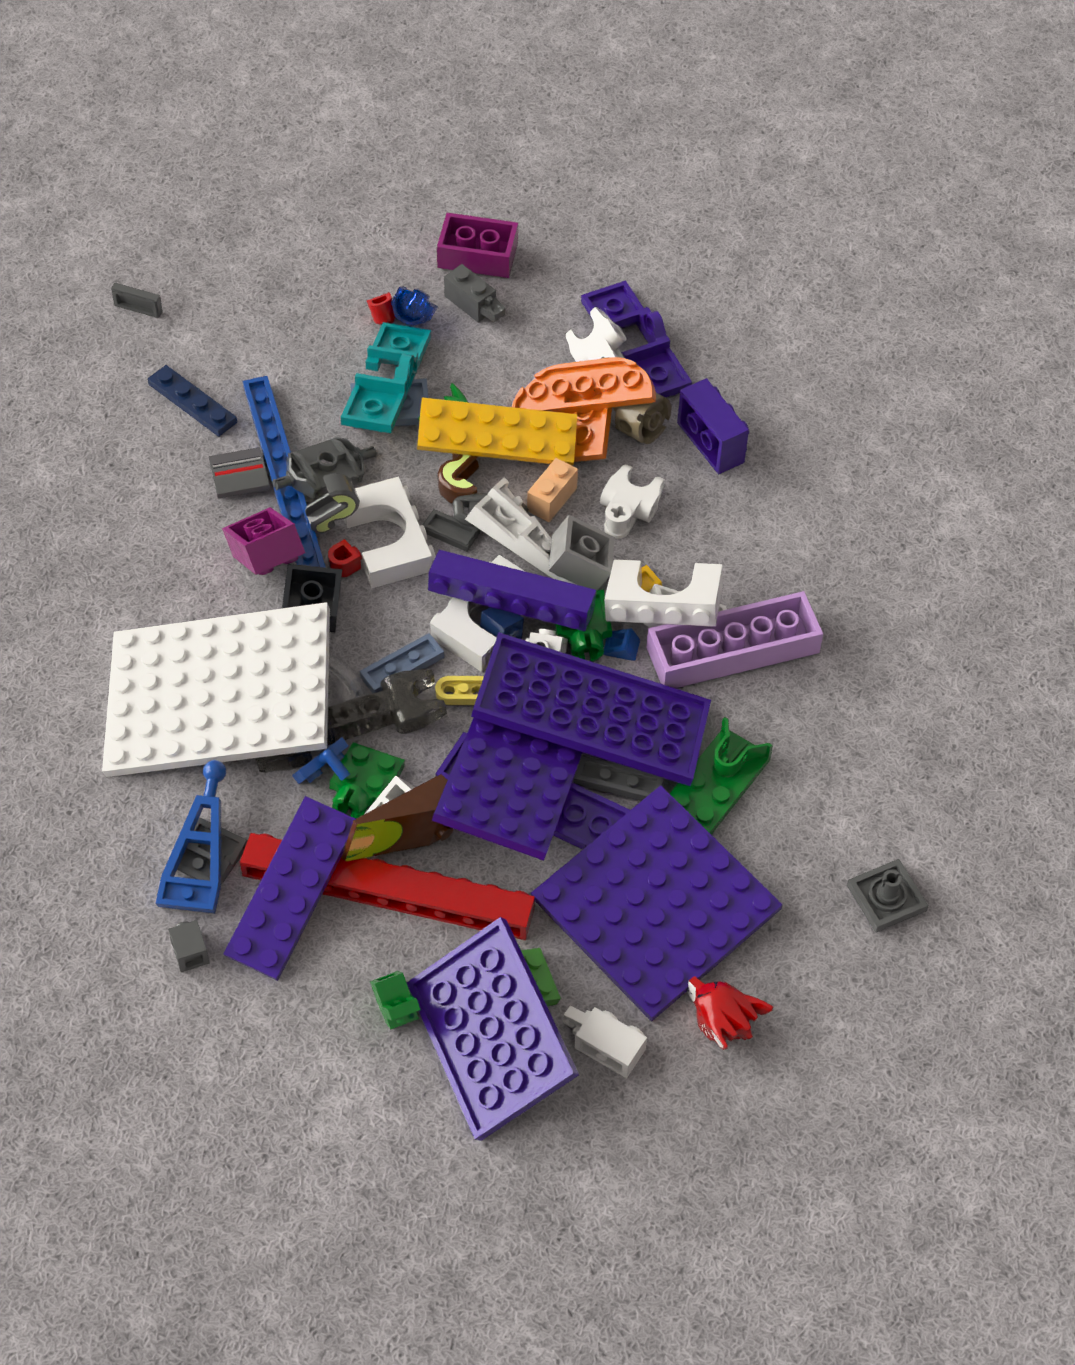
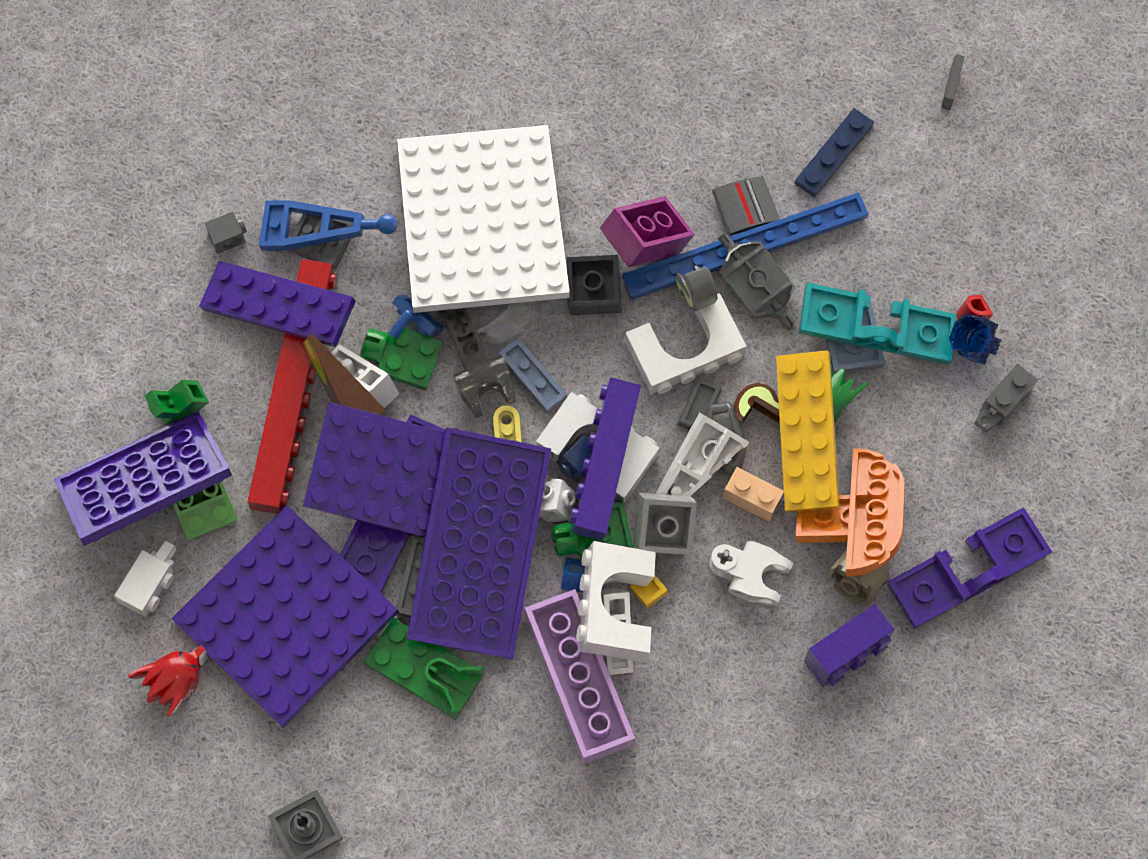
camera: 85 degrees right, 15 degrees up
(345, 557) = (647, 309): red plate -> none
(478, 243) = (1076, 395): magenta brick -> none
(602, 341) = (944, 529): white piece -> none

